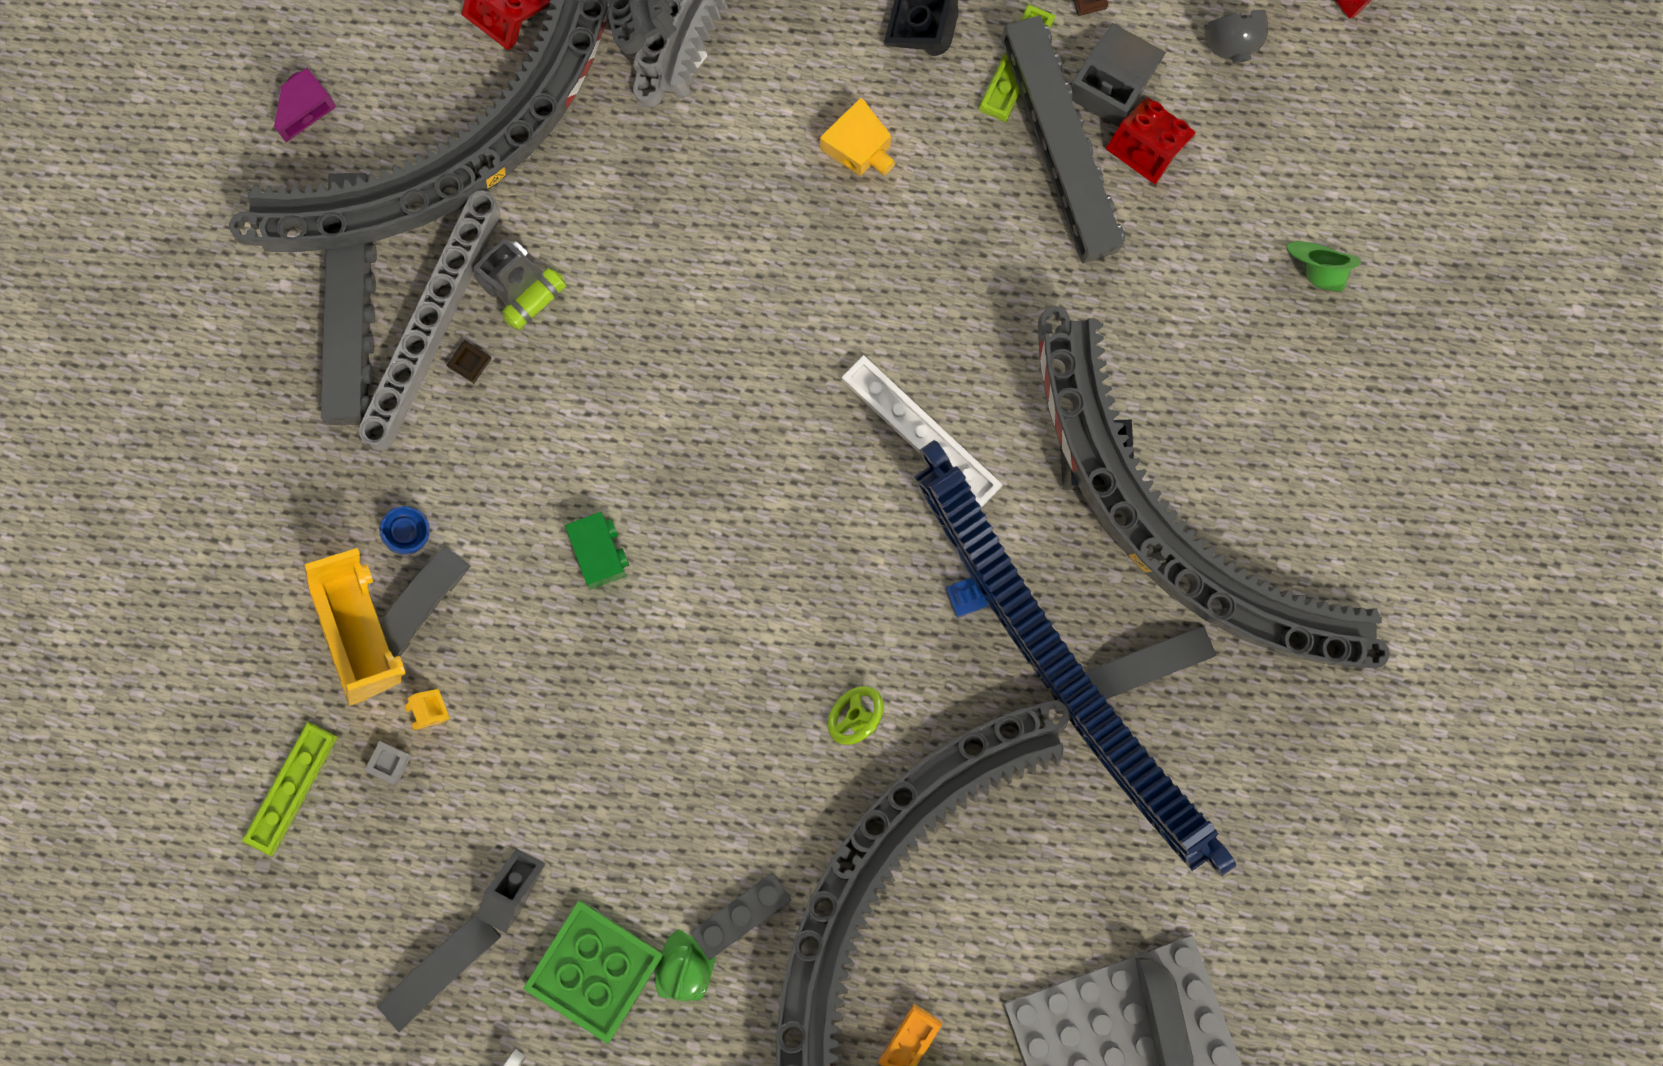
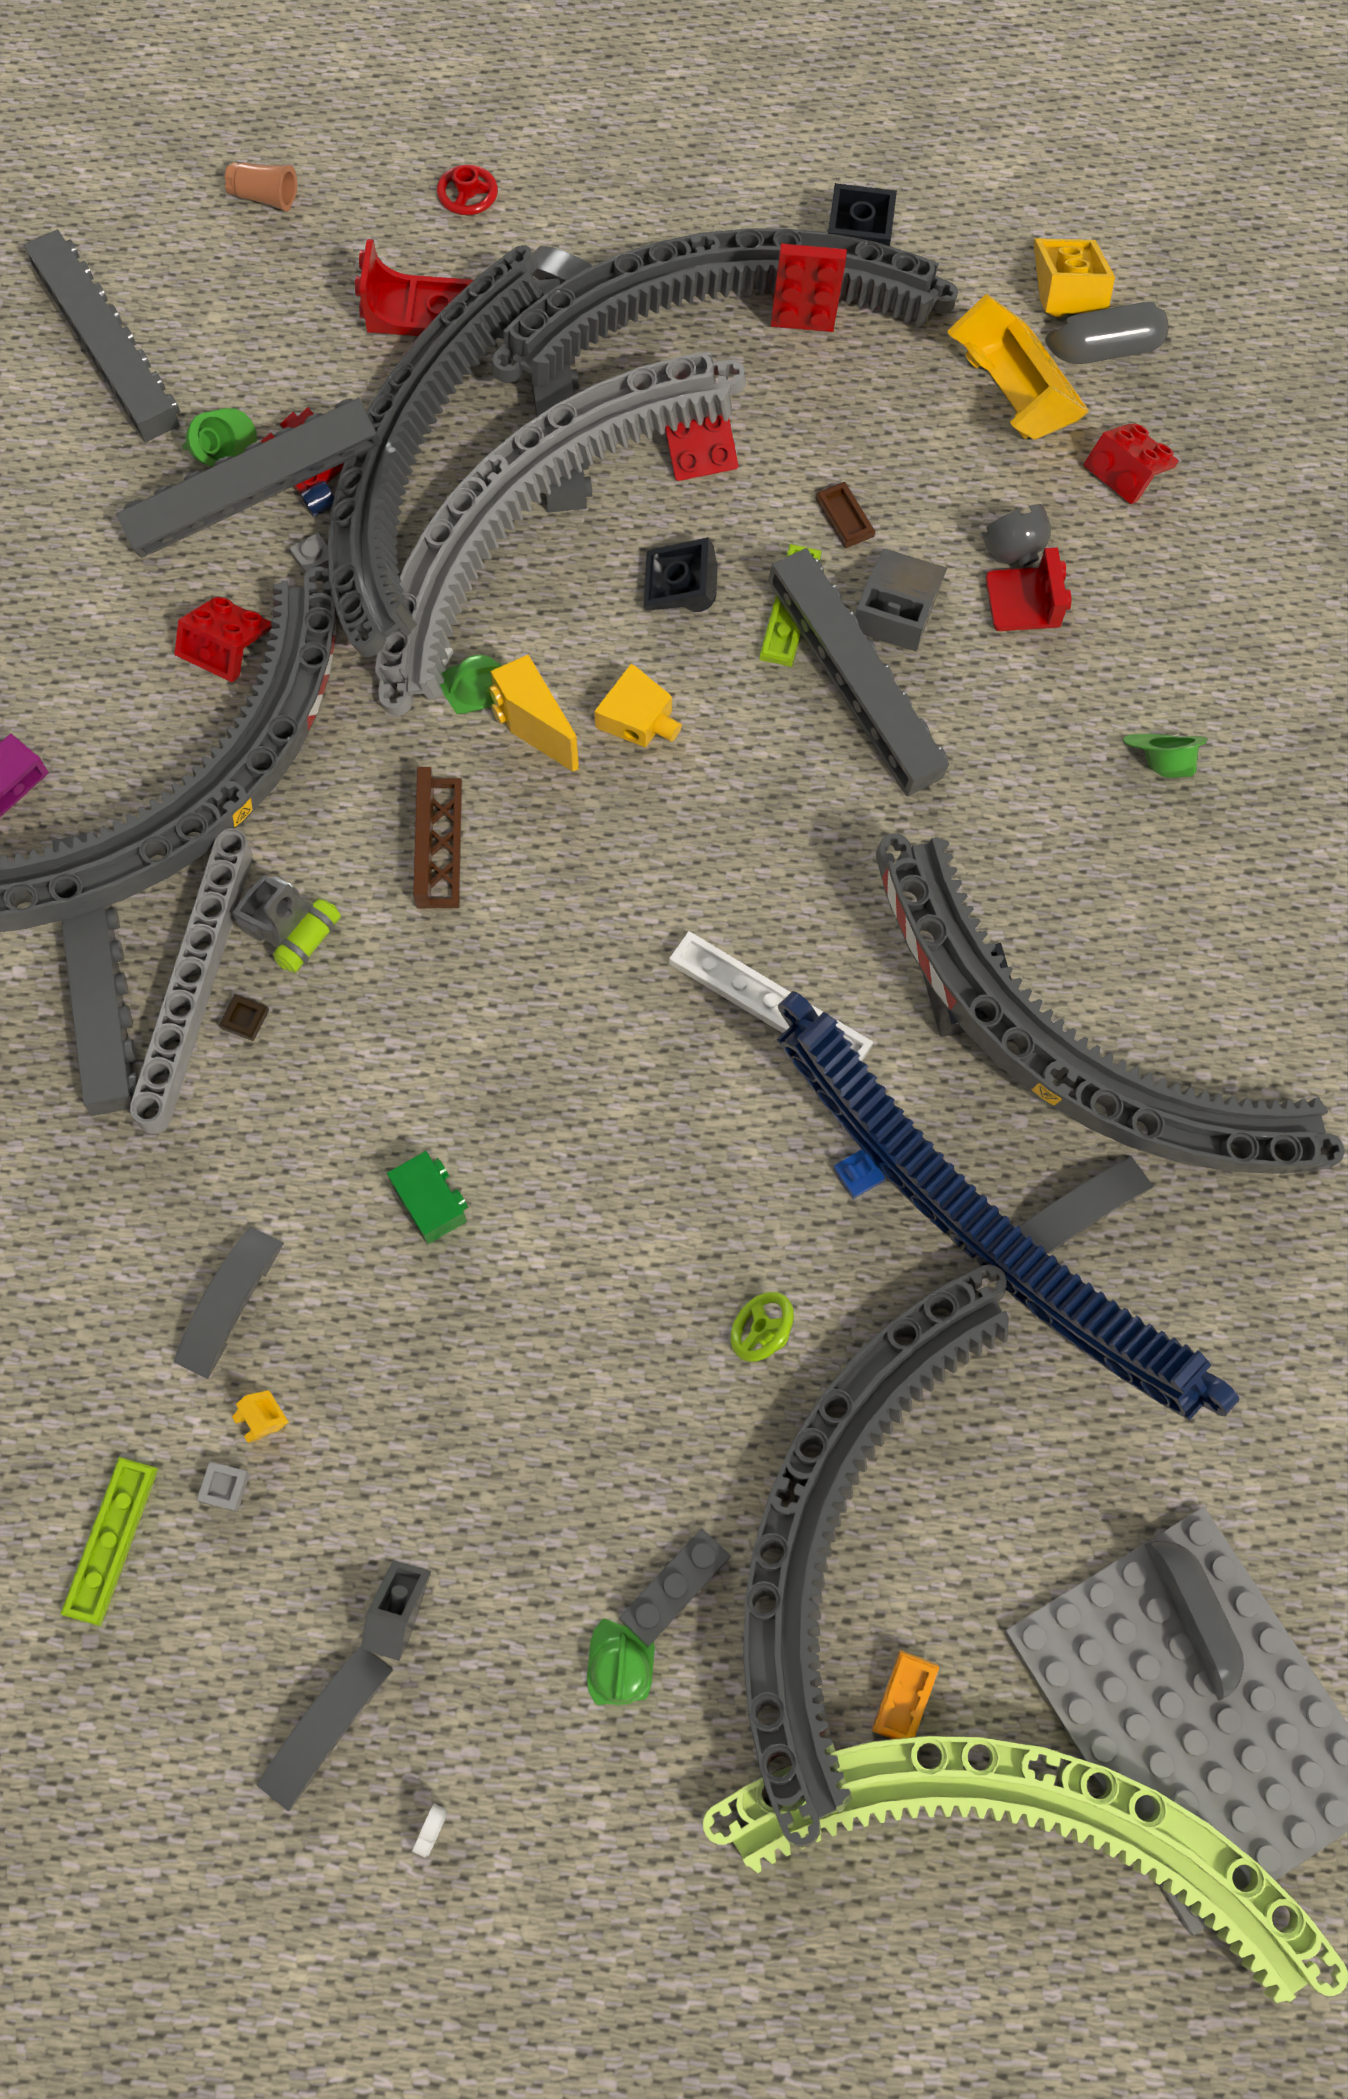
camera: 10 degrees left, 10 degrees down
(351, 626) = (153, 1332): yellow windscreen -> none
(397, 527) = (191, 1214): blue hair -> none
(593, 971) = (512, 1688): bright green plate -> none
(649, 230) = (424, 840): none -> reddish brown fence
(720, 90) = (468, 684): none -> bright green piece
(763, 128) = (532, 712): none -> yellow slope
(1150, 139) = (950, 657): red bracket -> none
(1234, 92) = (1029, 595): none -> red bracket

